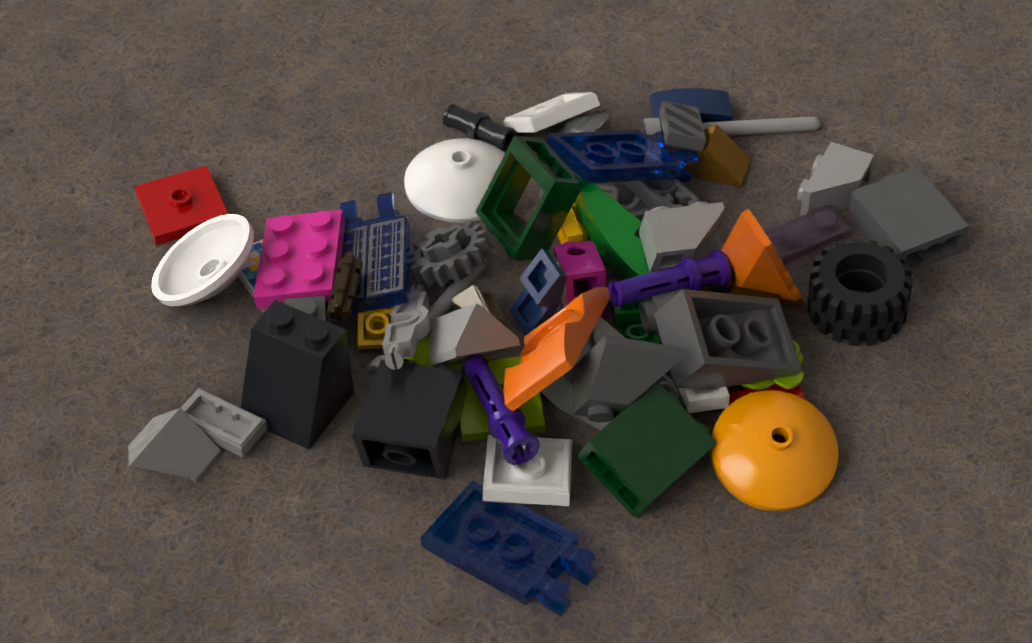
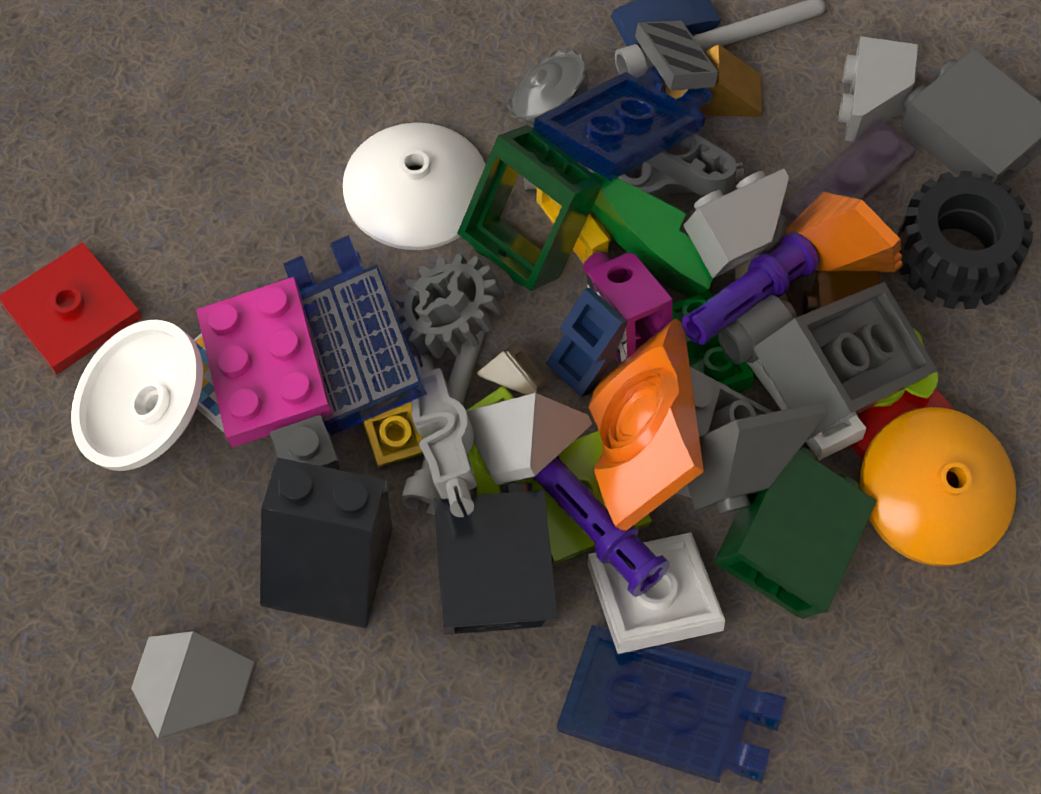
camera: 20 degrees left, 15 degrees up
(224, 422) = (244, 623): light grey plate -> none
(345, 287) = (343, 396): dark brown axle -> none
(478, 126) = (415, 104): black pin -> none
(552, 112) = (503, 68): white tile -> none

